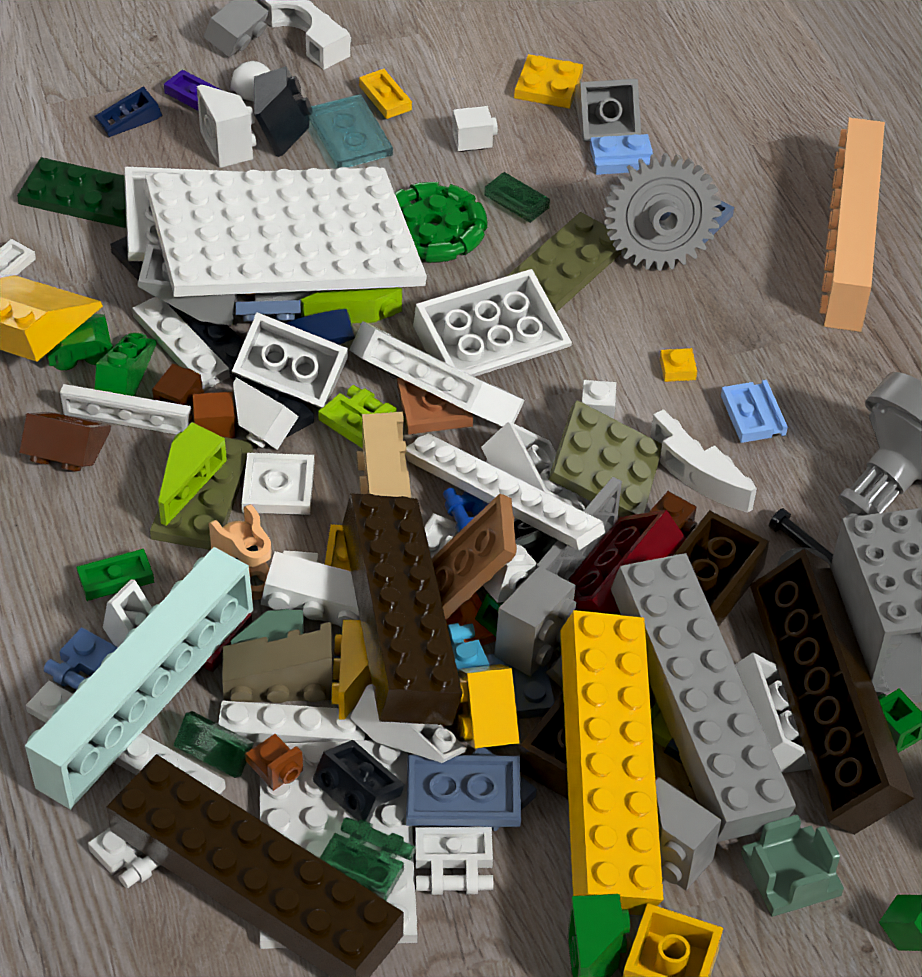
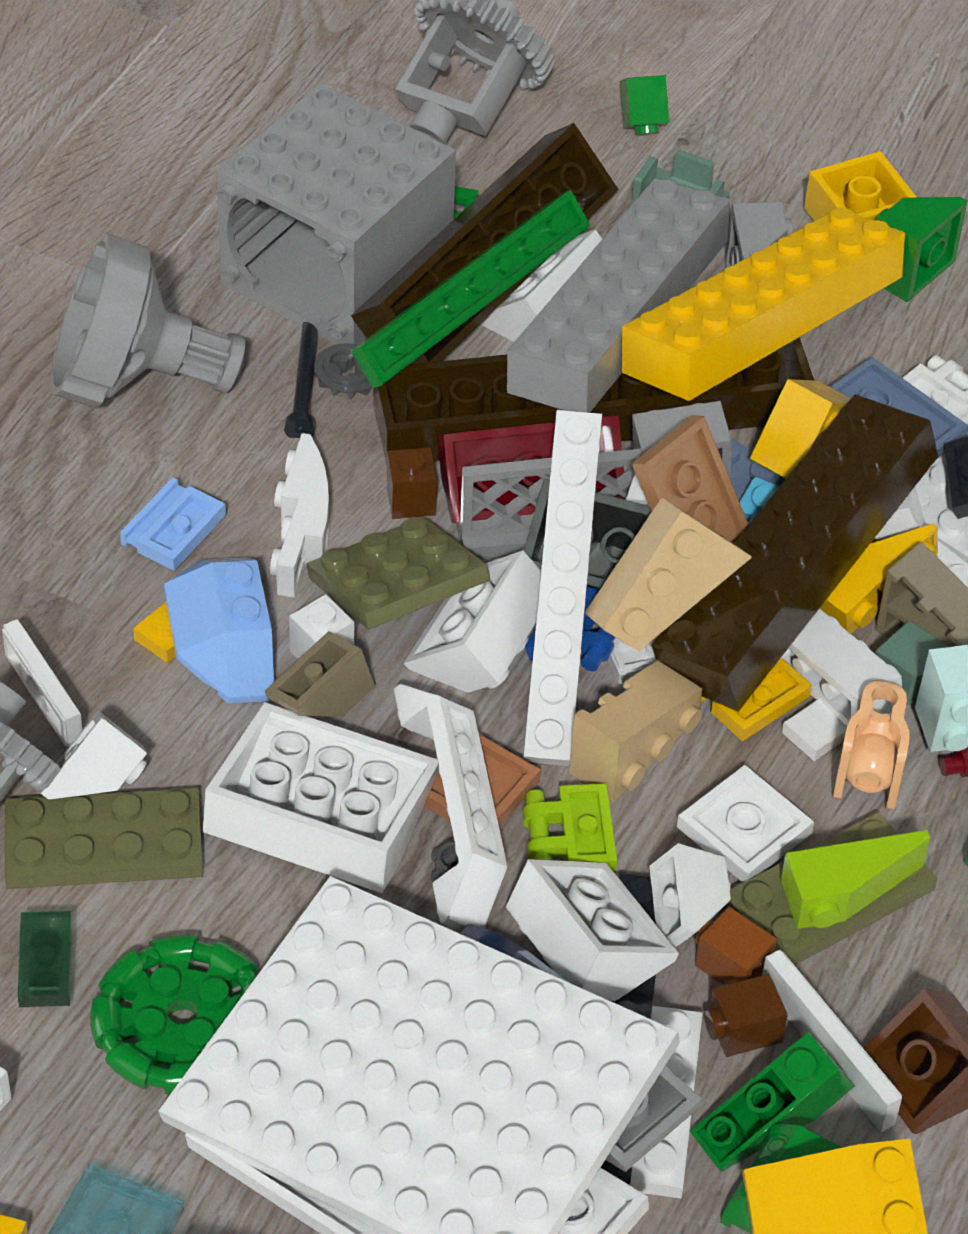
camera: 135 degrees left, 0 degrees up
(440, 514) = (663, 575): none -> tan wedge
(560, 375) = (324, 679): none -> dark tan slope
(607, 270) = (97, 761): none -> white slope
(658, 381) = (223, 627): none -> light blue wedge
(688, 290) = (41, 682): none -> white tile
(790, 638) = (470, 289): none -> green tile

